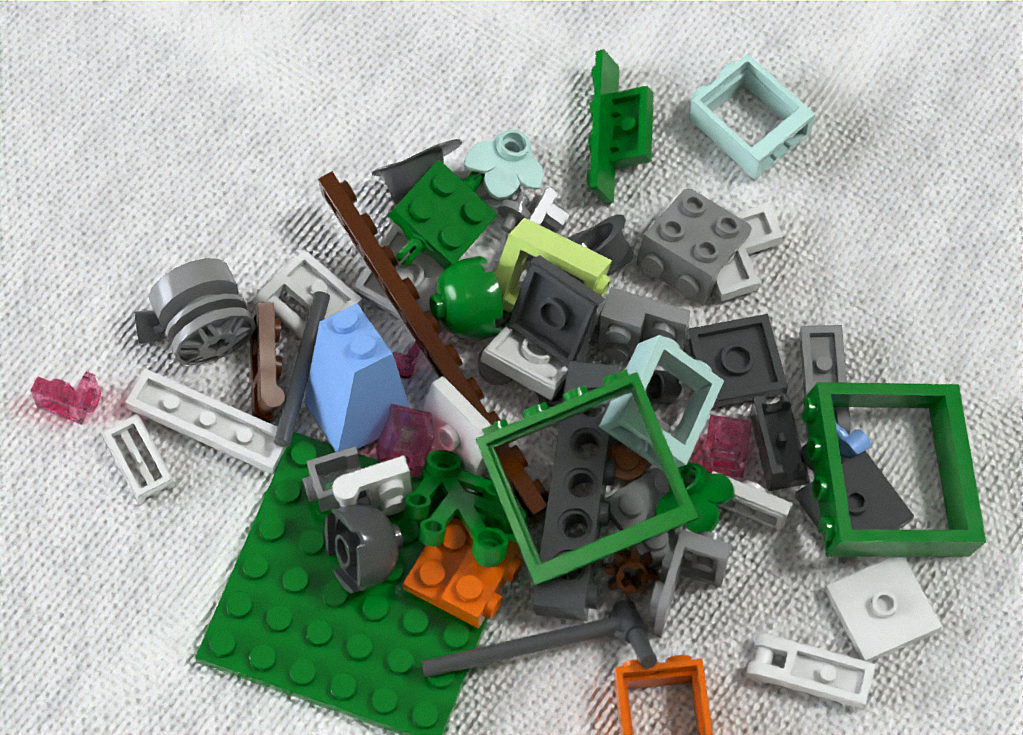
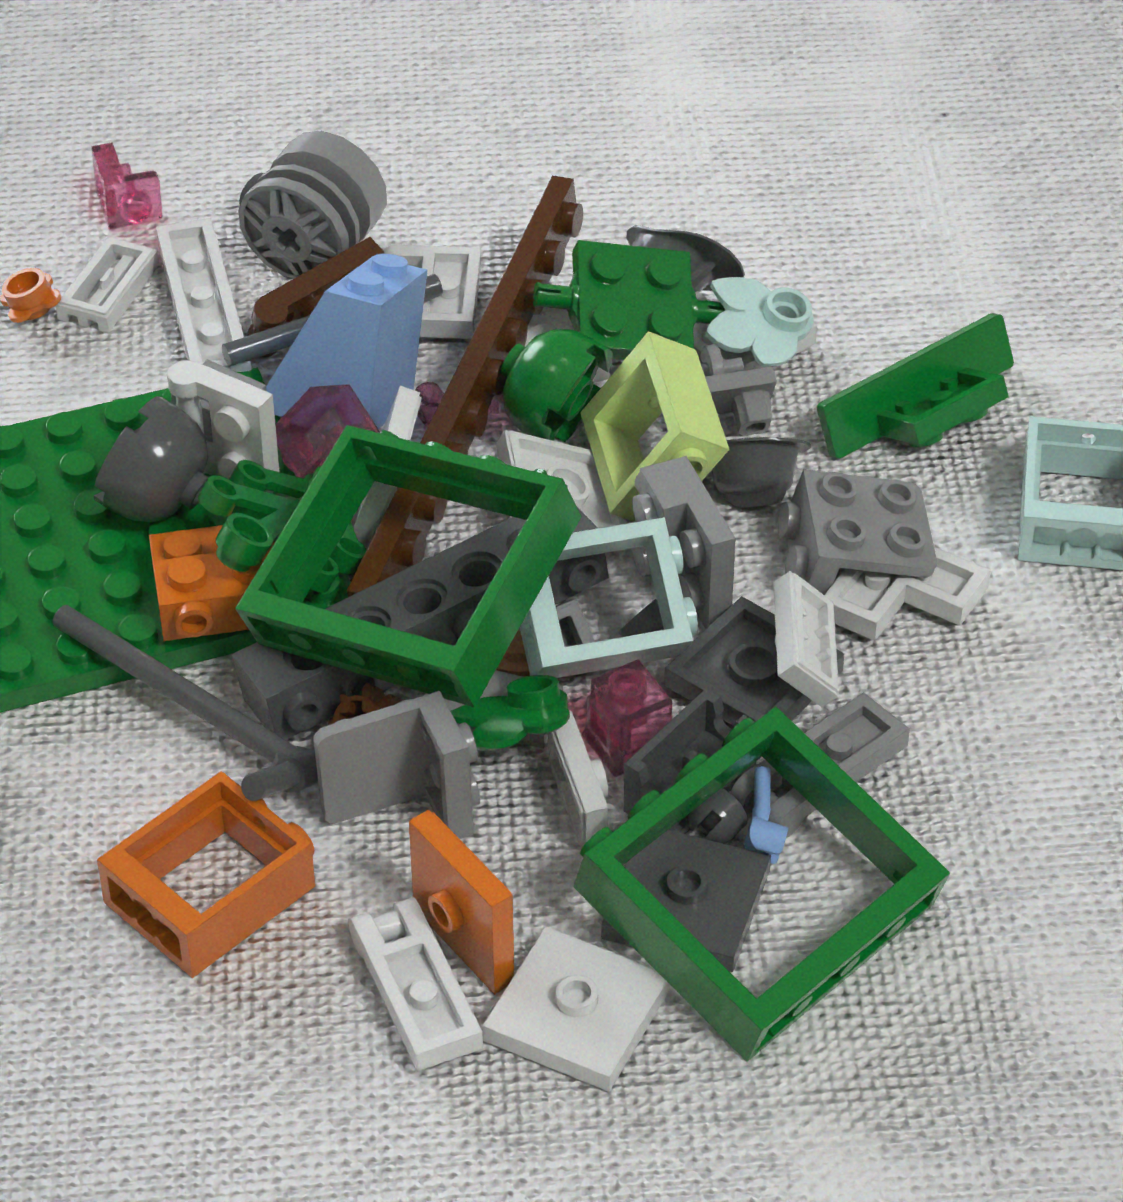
camera: 50 degrees right, 20 degrees down
(104, 507) = (29, 294): none -> orange plate
(556, 311) = (612, 441): dark grey plate -> none
(758, 327) = (805, 639): none -> white plate
(799, 614) = (462, 900): none -> orange plate

